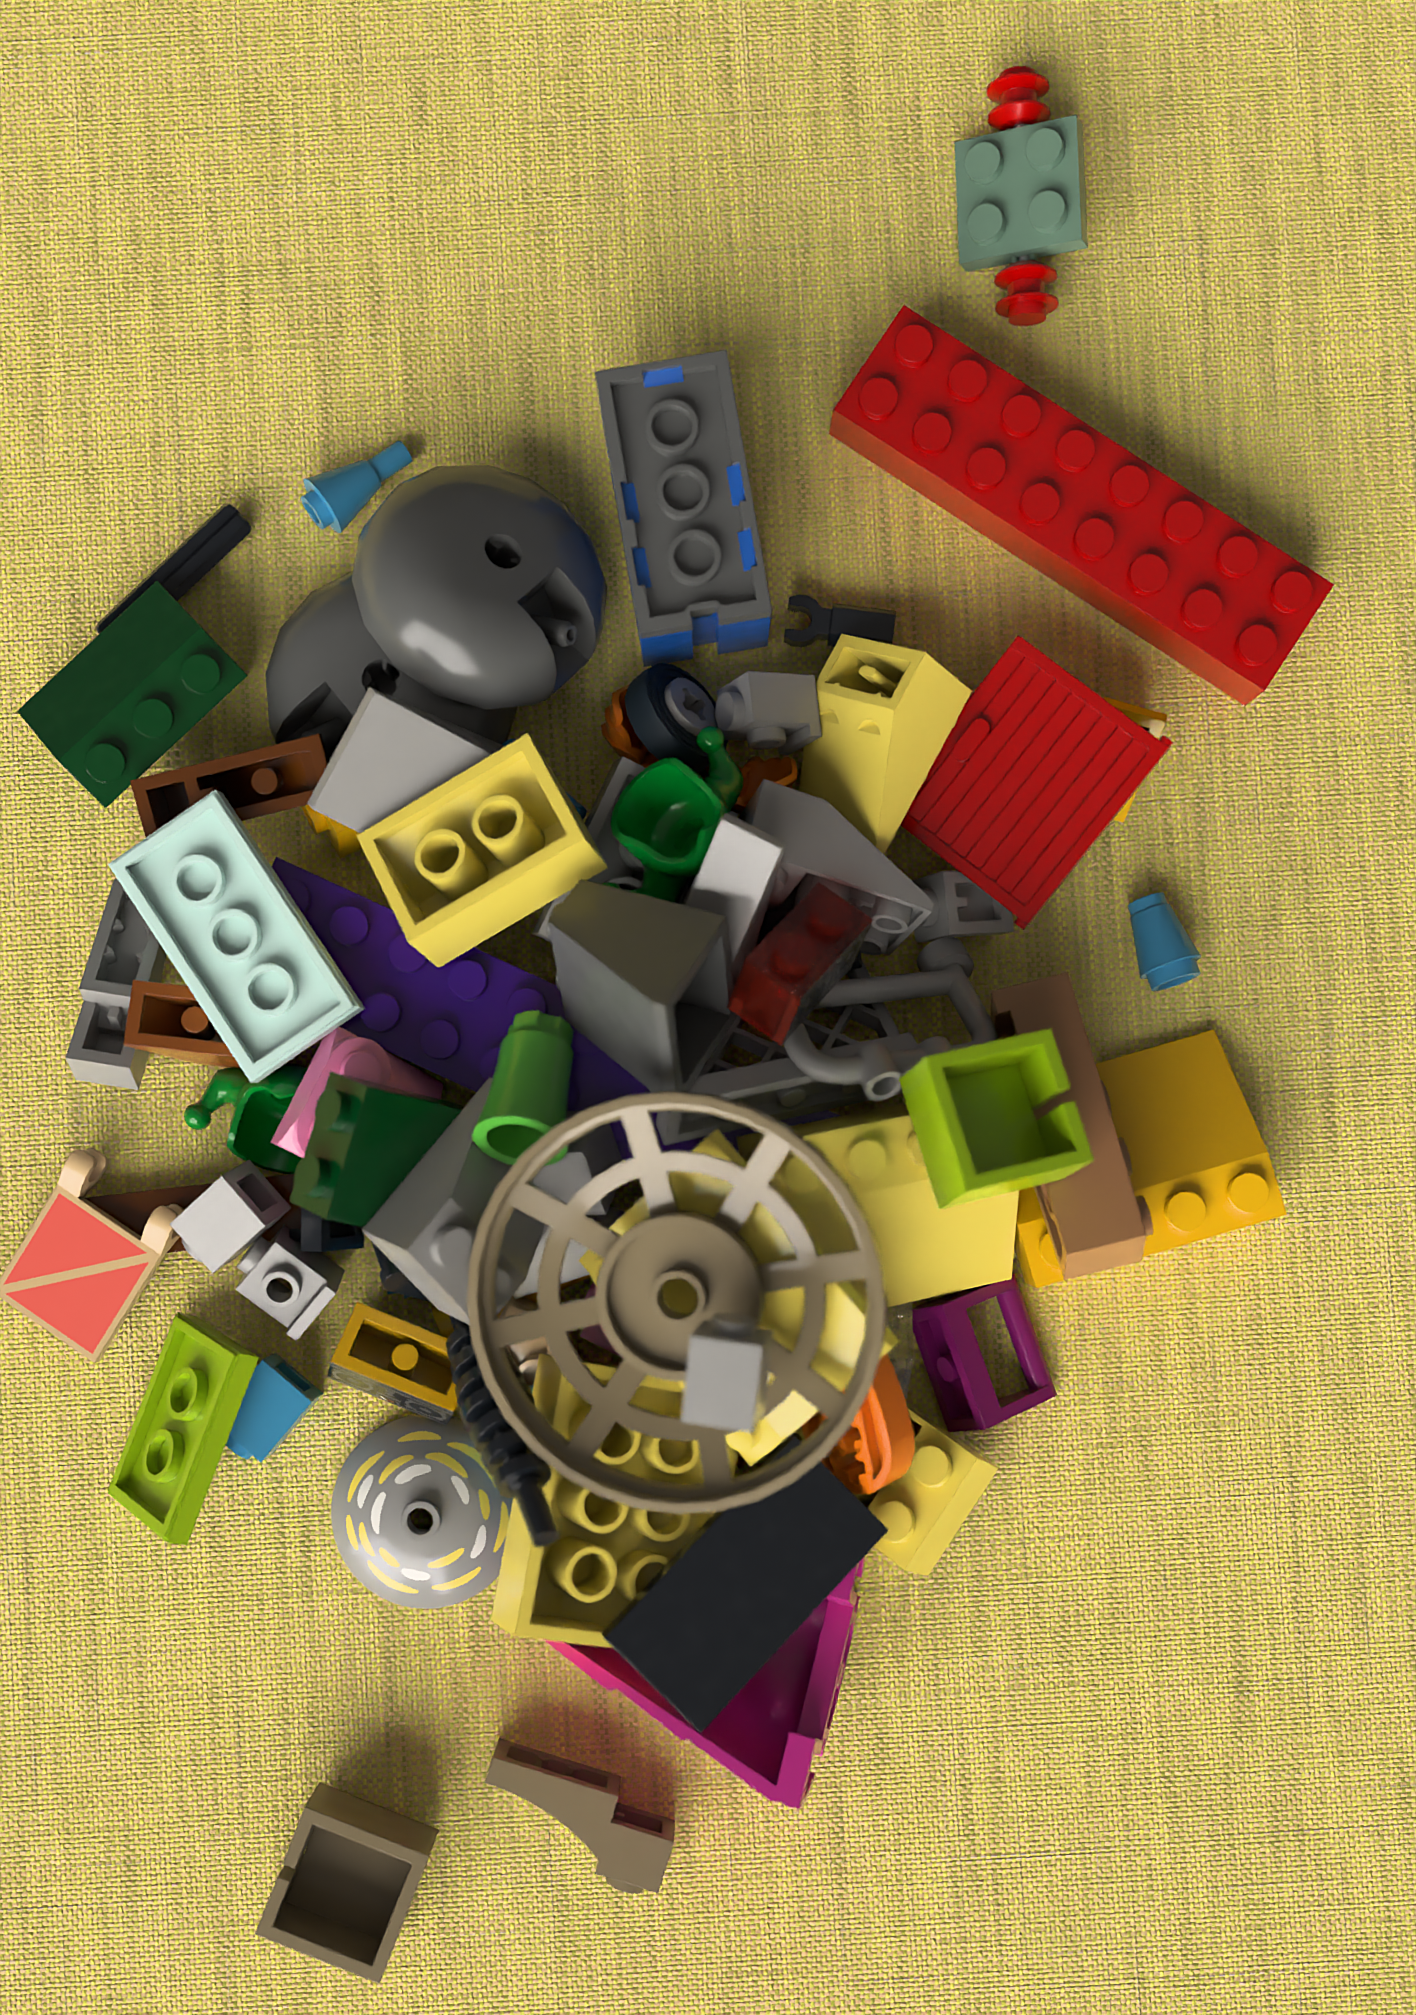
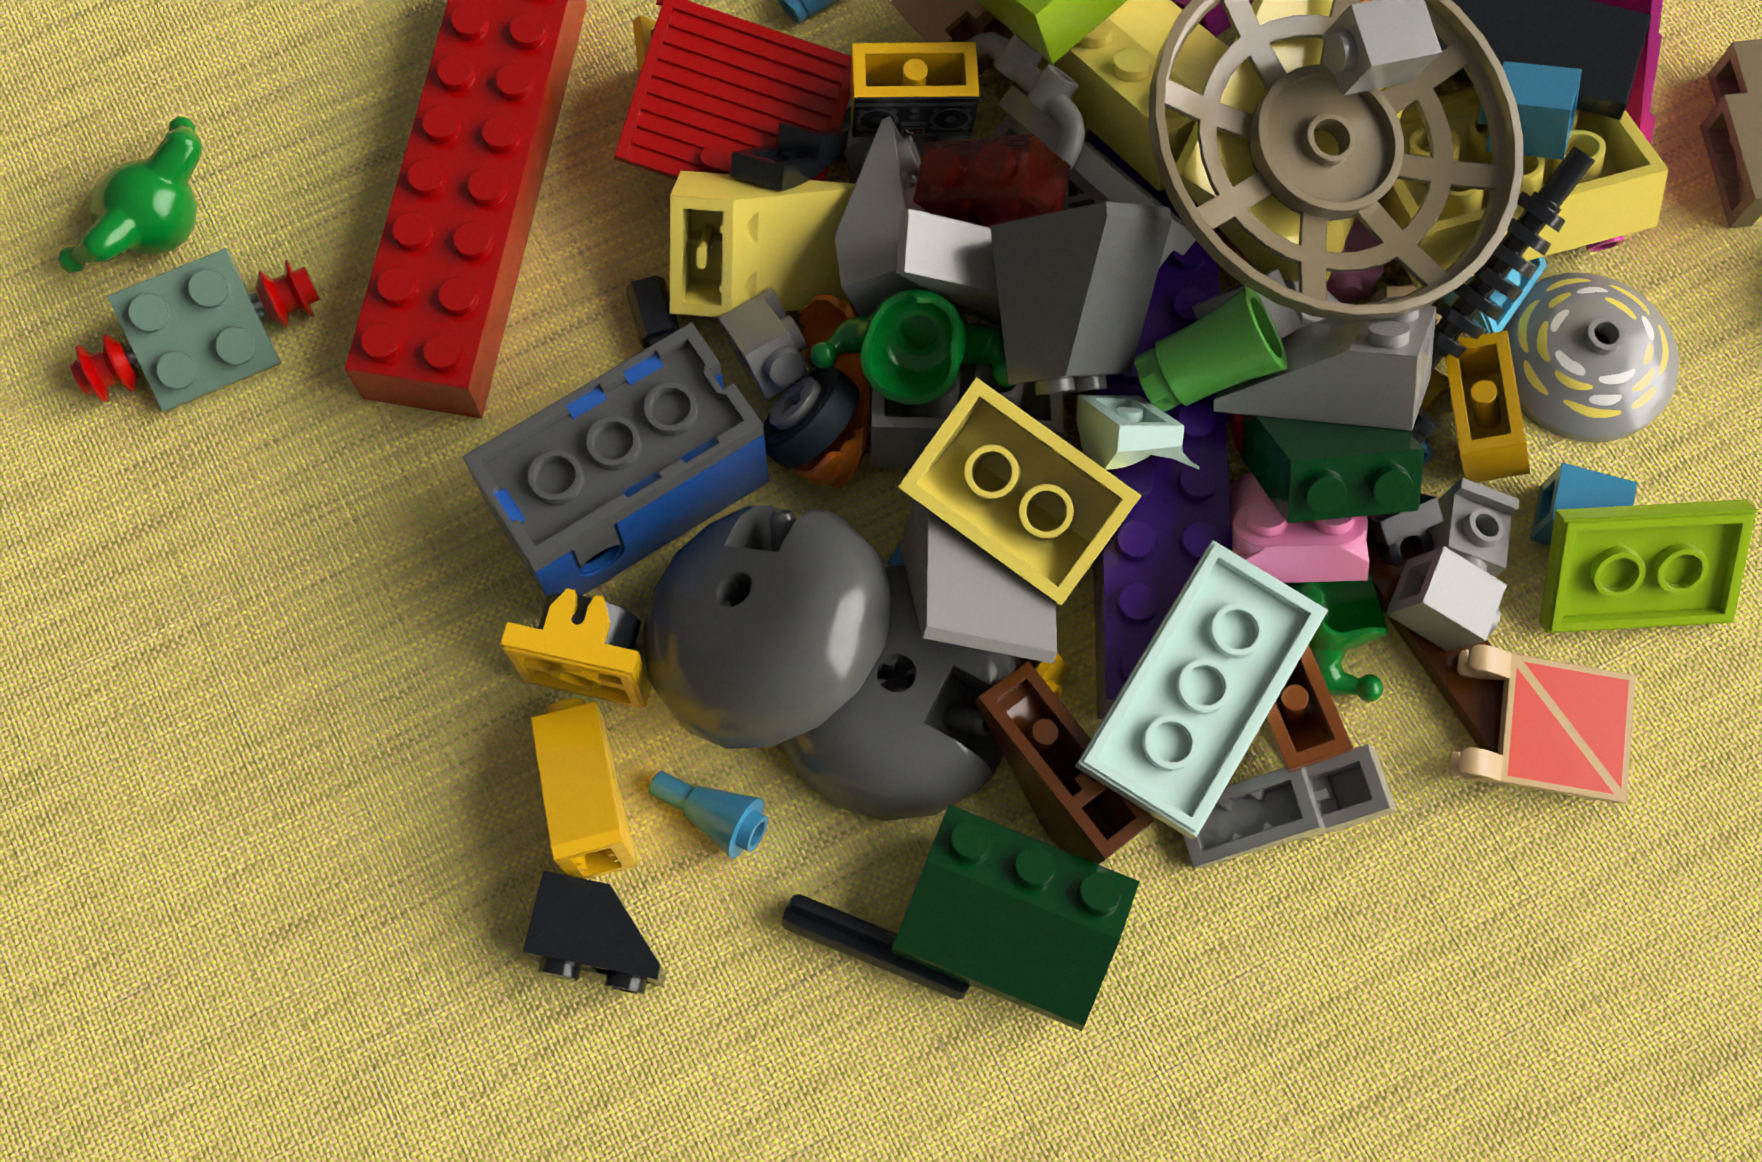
camera: 115 degrees left, 15 degrees down
(289, 341) = (589, 929): none -> black slope
(410, 371) = (581, 790): none -> yellow slope
(490, 979) = (1127, 430): none -> light aqua slope
(534, 415) = (581, 650): none -> yellow piece
(644, 1548) = (1545, 106): none -> dark azure brick
(935, 798) = (795, 159): none -> black slope
(955, 947) = (918, 84): none -> yellow brick
(1181, 187) = (142, 203): none -> green piece

